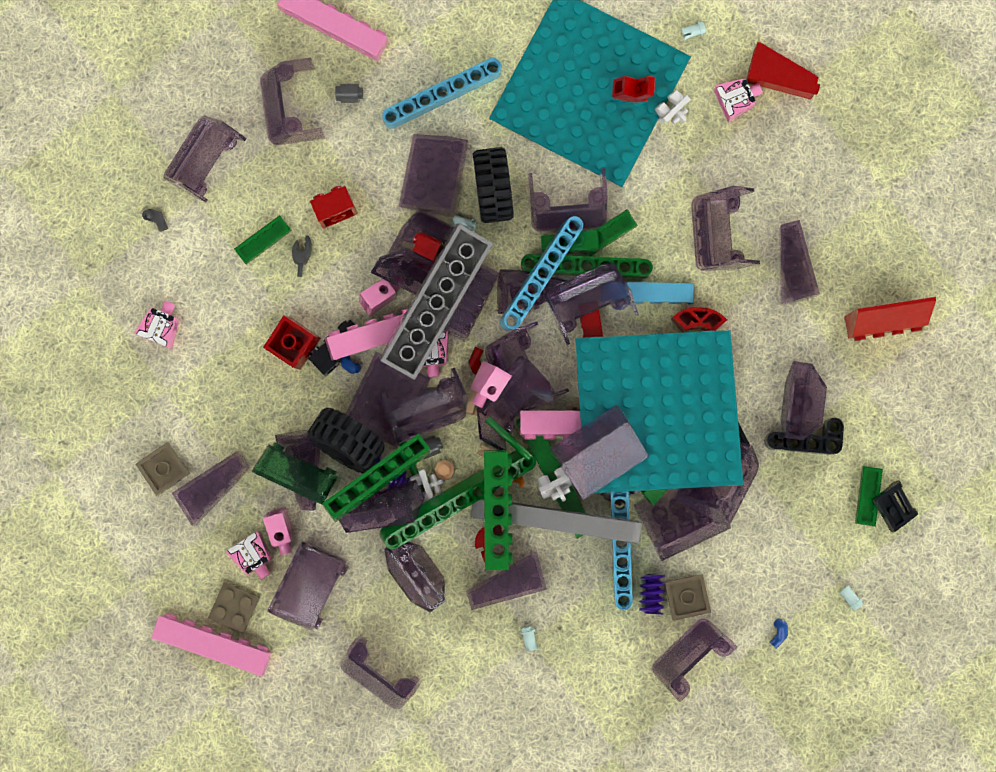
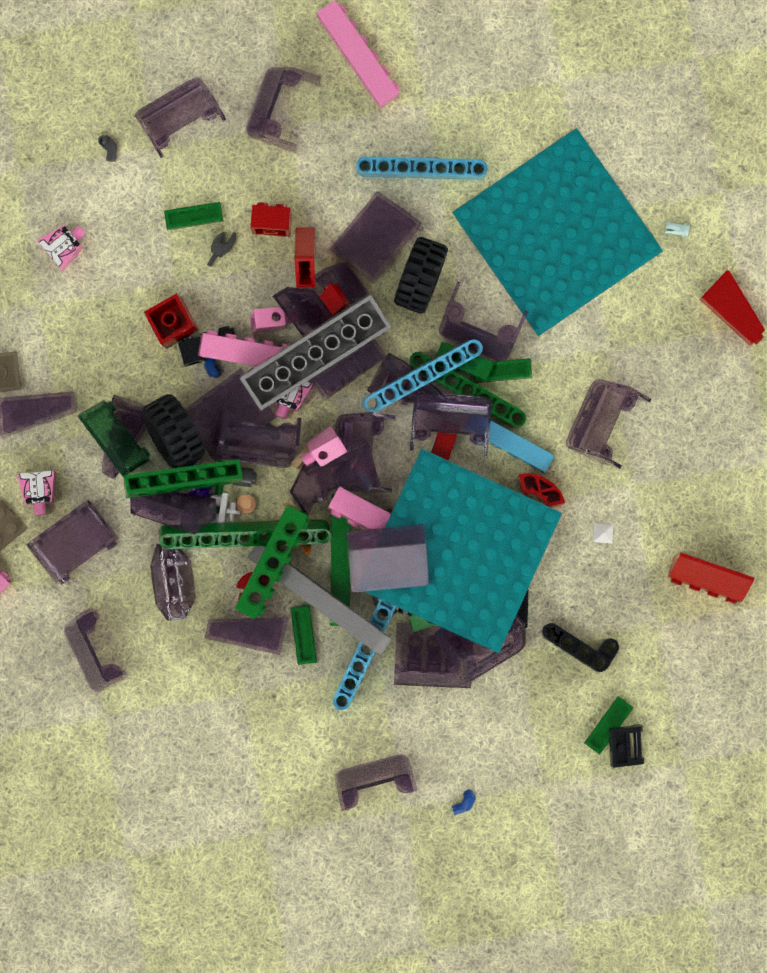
camera: 25 degrees right, 0 degrees up
(276, 522) = (76, 472): bright pink torso -> none
(348, 93) = (338, 124): dark grey brick -> none
(382, 223) = (305, 257): none -> red slope
(468, 223) = (383, 298): light aqua pin -> none
(474, 361) = (324, 421): red arm -> none
(509, 438) = (316, 505): green bar -> none
(529, 638) = (242, 690): light aqua pin -> none
(556, 488) = (332, 570): white hips -> none
(557, 559) = (303, 635): none -> green plate
(633, 89) = (592, 254): red brick -> none
(652, 594) = (370, 708): dark purple piece -> none
(666, 113) = (612, 291): white hips -> none
(687, 597) = (400, 728): dark tan plate -> none
(736, 97) = (683, 309): torso -> none
(771, 329) = (603, 533): none -> white slope
(796, 269) = (651, 491): wedge -> none
(802, 401) = (594, 610): wedge -> none
(851, 598) = (544, 805): light aqua pin -> none

